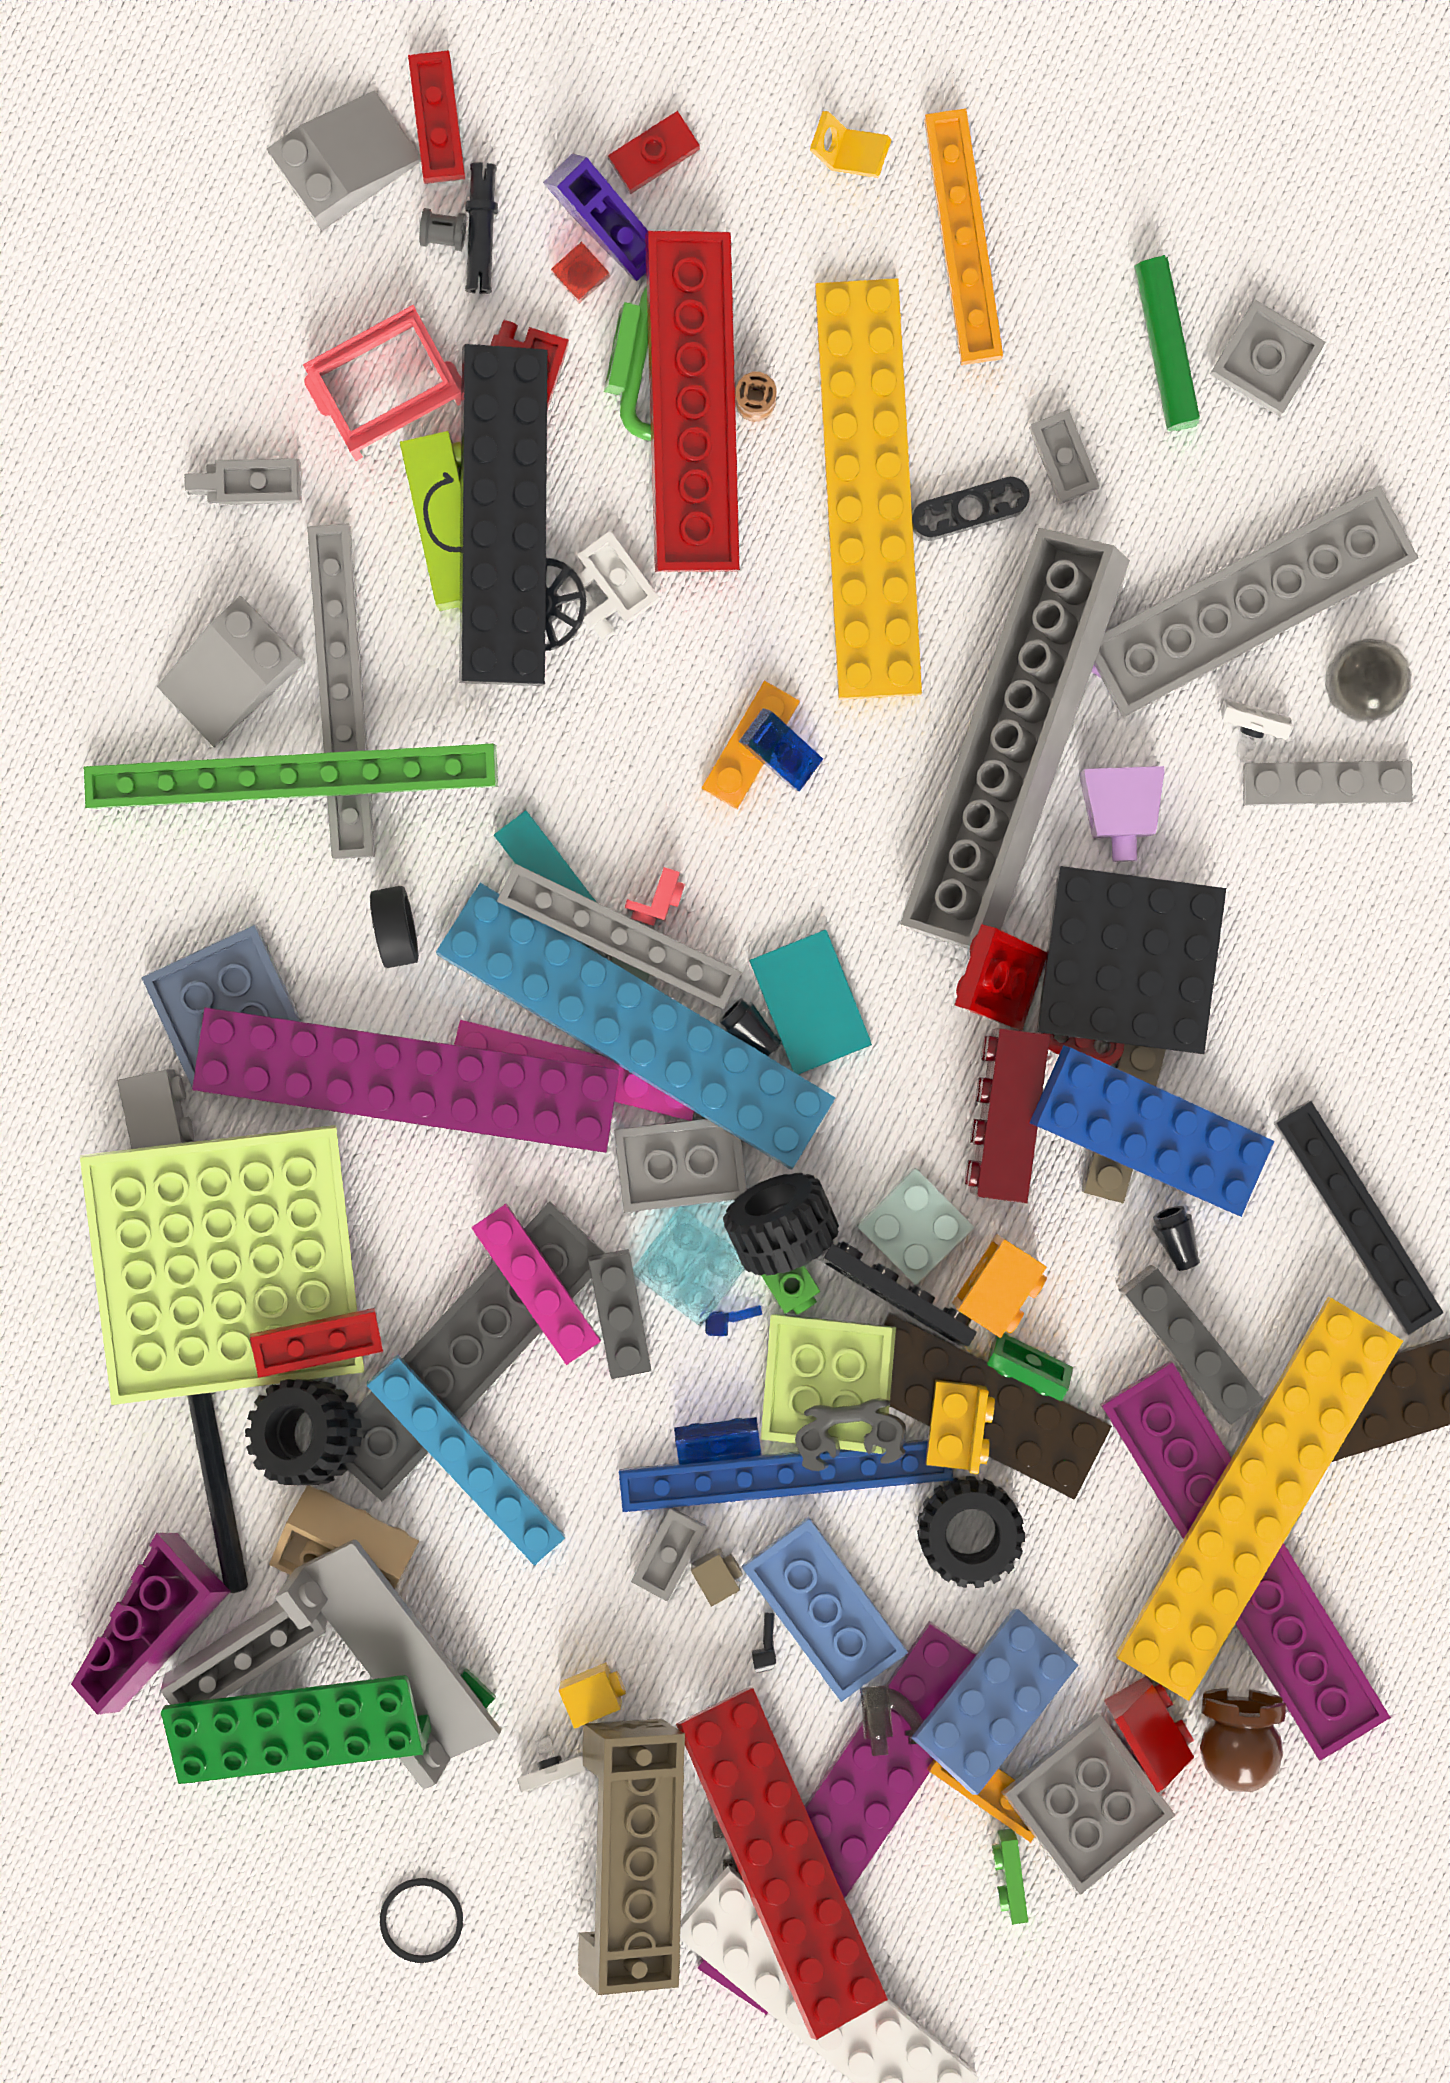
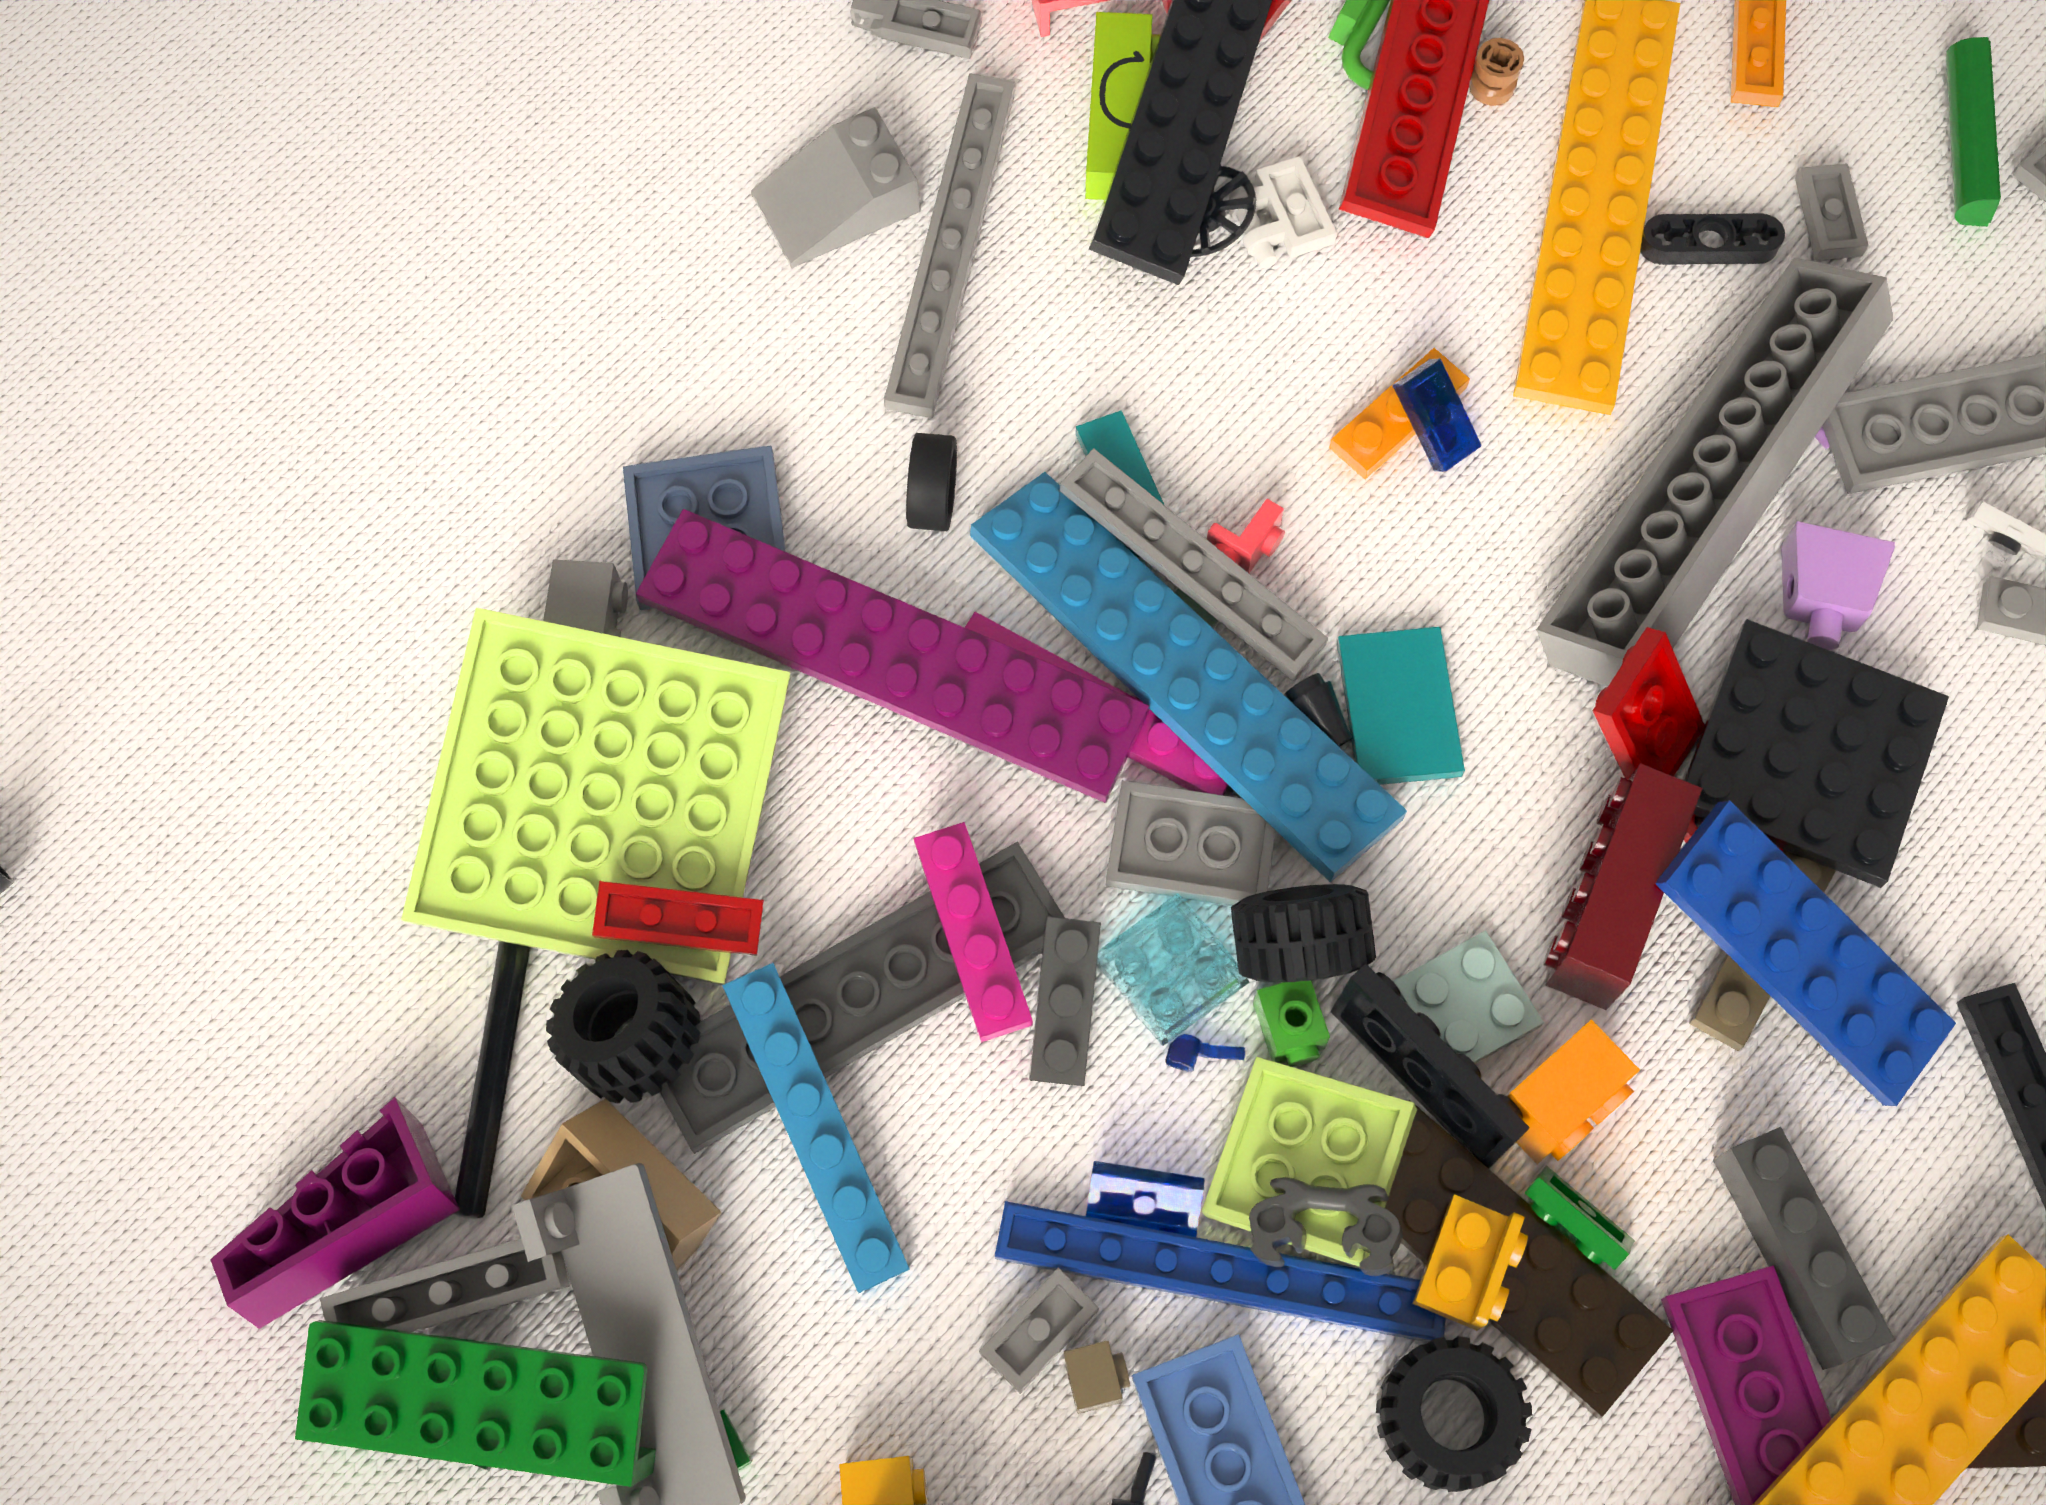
camera: 15 degrees right, 20 degrees down
(291, 776) = (871, 300): bright green plate -> none
(1177, 1236) = (1808, 1108): black cone -> none

